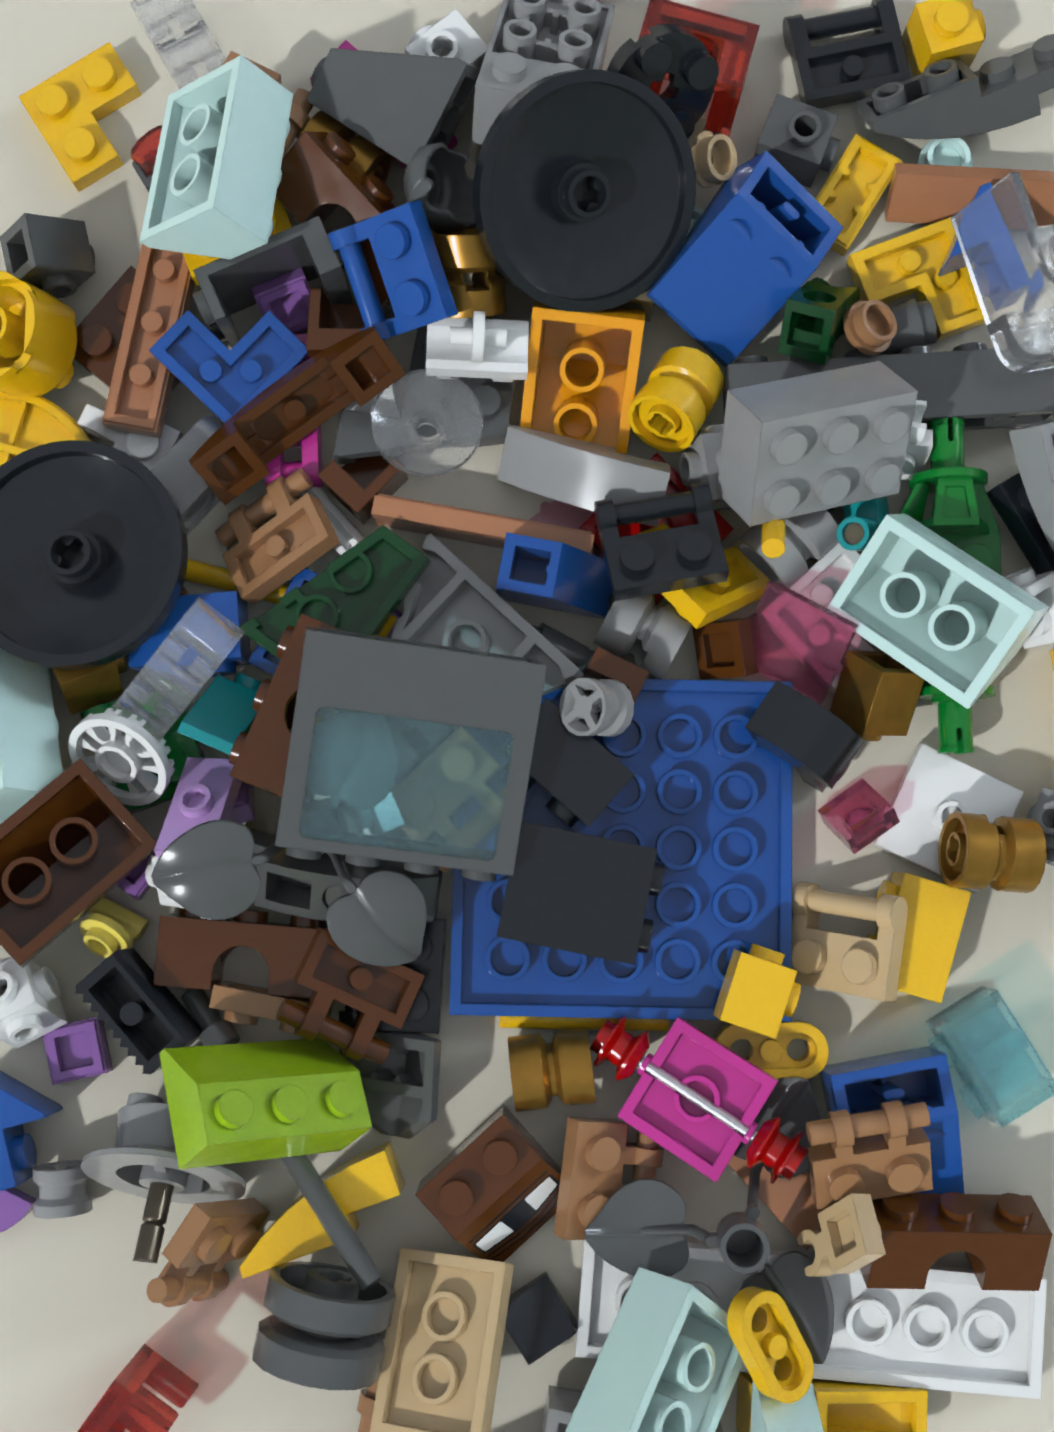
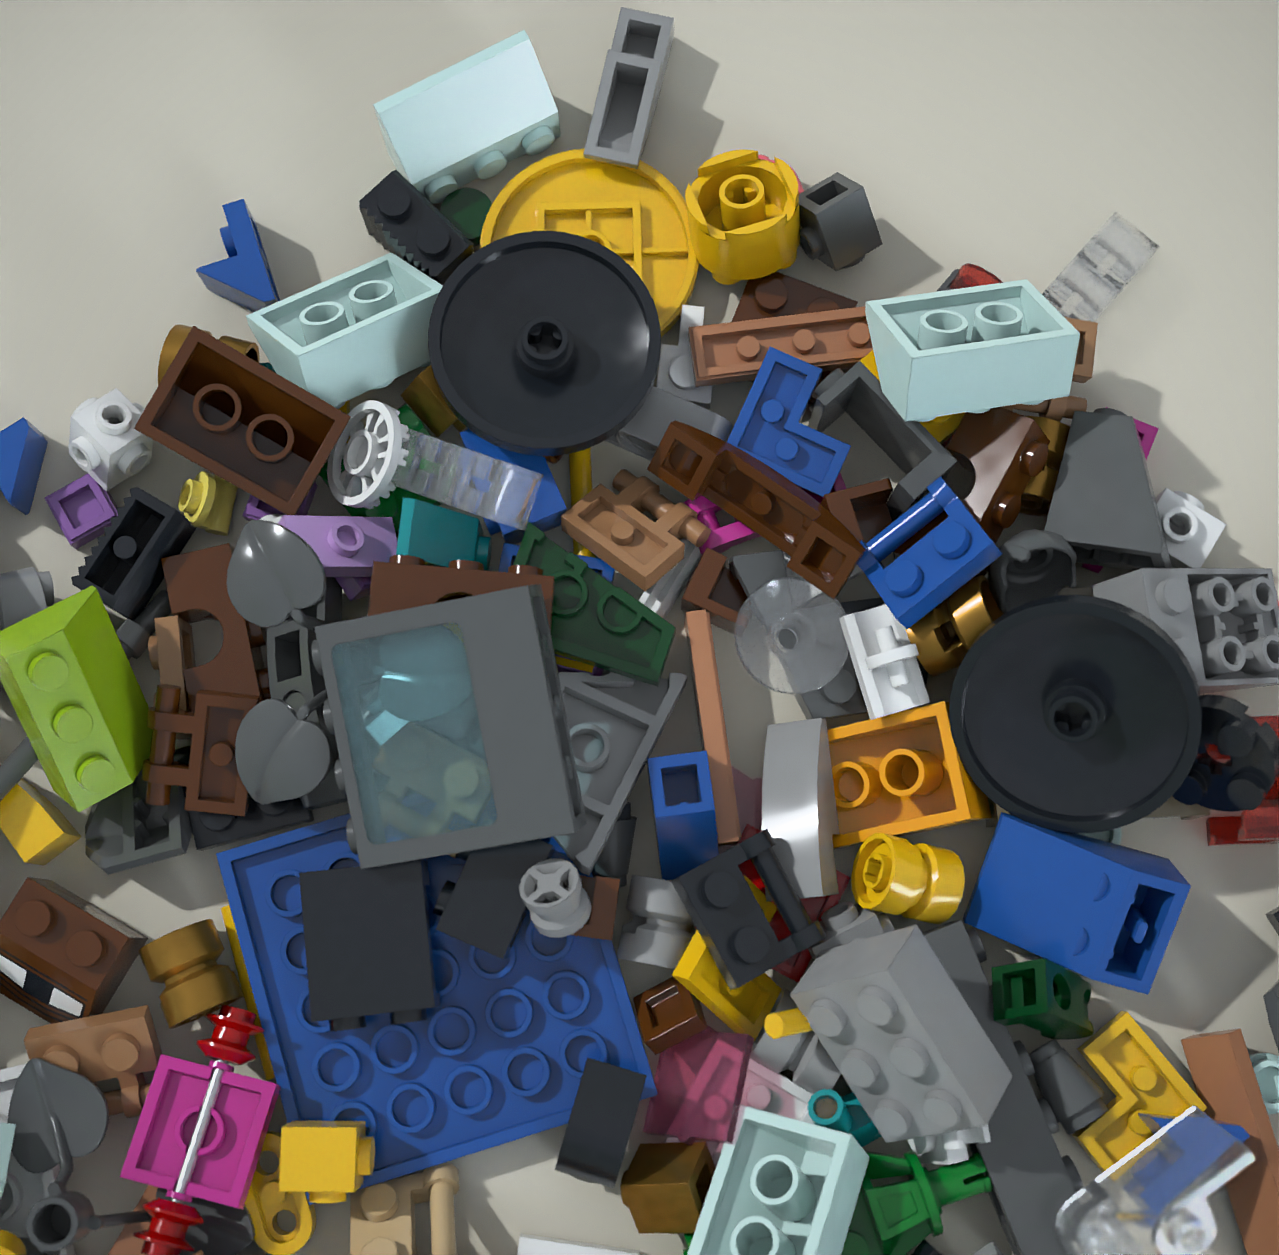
camera: 65 degrees right, 5 degrees down
(70, 107) = (995, 192): yellow plate -> none
(286, 299) = (873, 458): medium lavender tile -> none
(713, 158) = (1168, 833): tan plate -> none
(799, 138) = (1227, 917): dark grey brick -> none
(856, 188) = (1200, 995): yellow plate -> none
(858, 816) = (541, 1209): clear pink plate -> none
(869, 326) = (1052, 1056): medium nougat plate -> none

